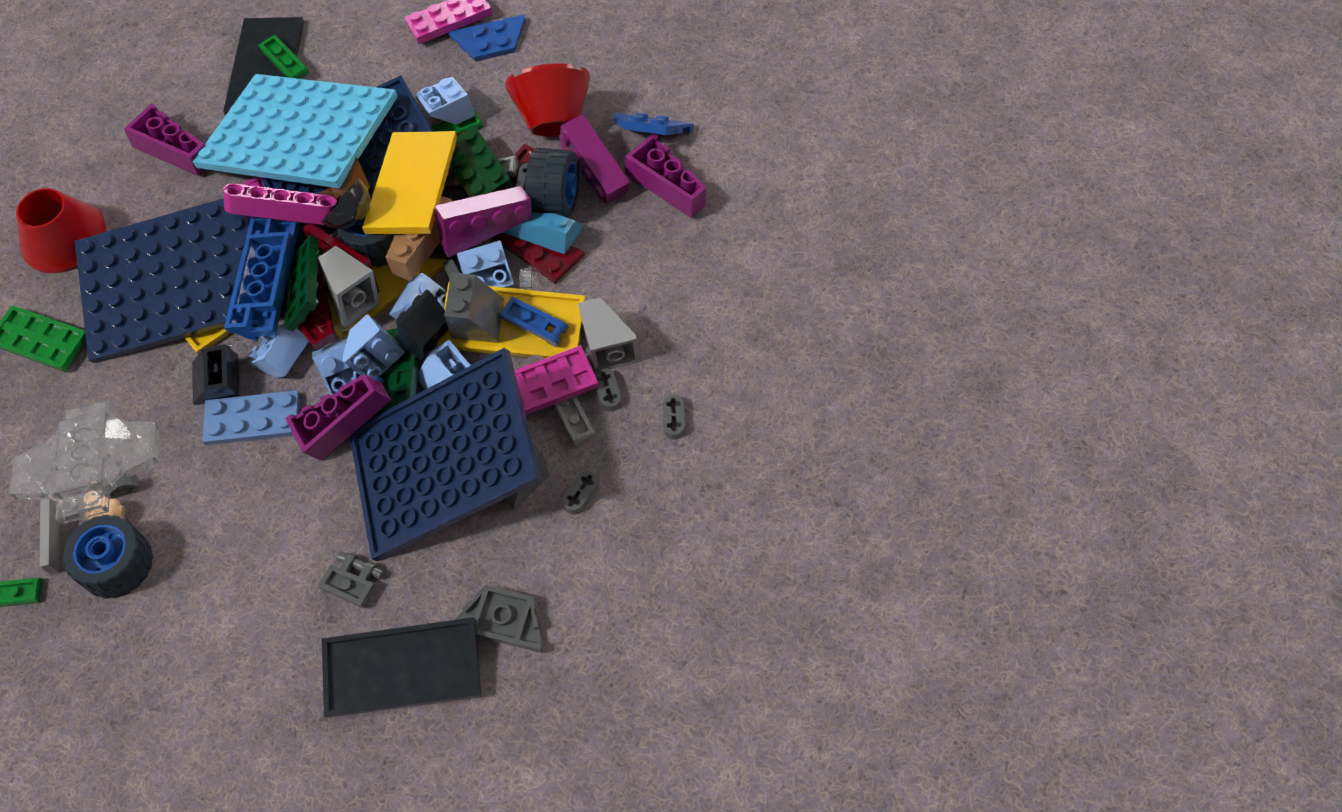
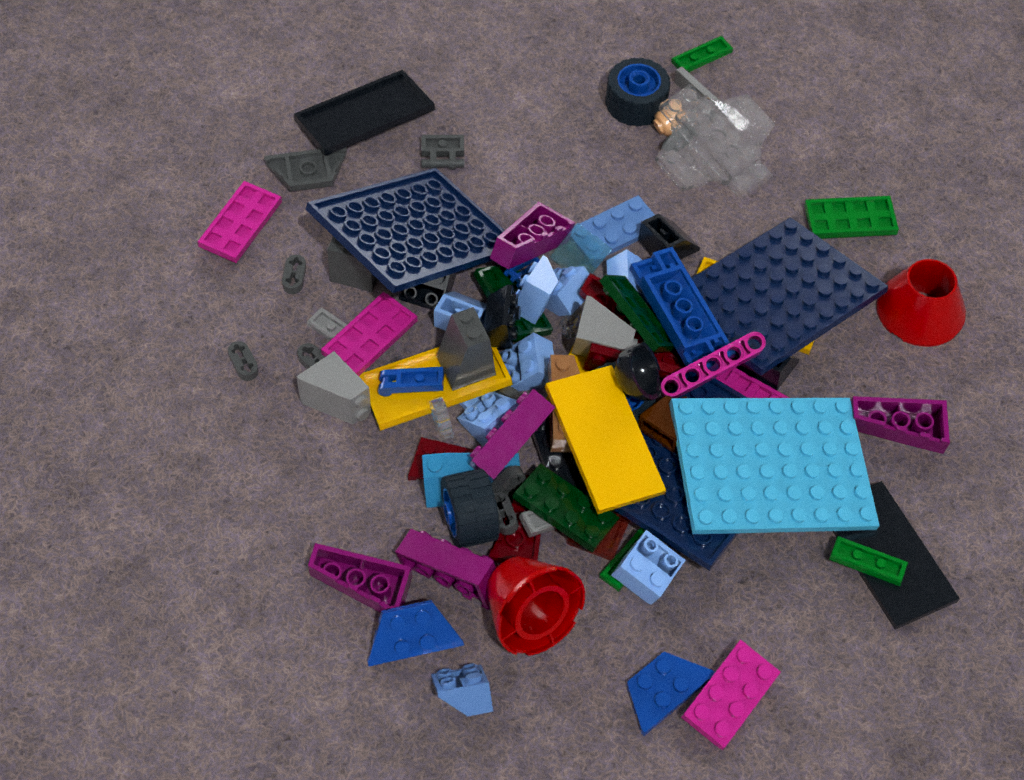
camera: 145 degrees right, 5 degrees down
(297, 391) = (581, 249): none -> clear light blue slope
(604, 577) = (239, 221): none -> dark pink plate
(633, 80) = (464, 689): none -> medium blue slope

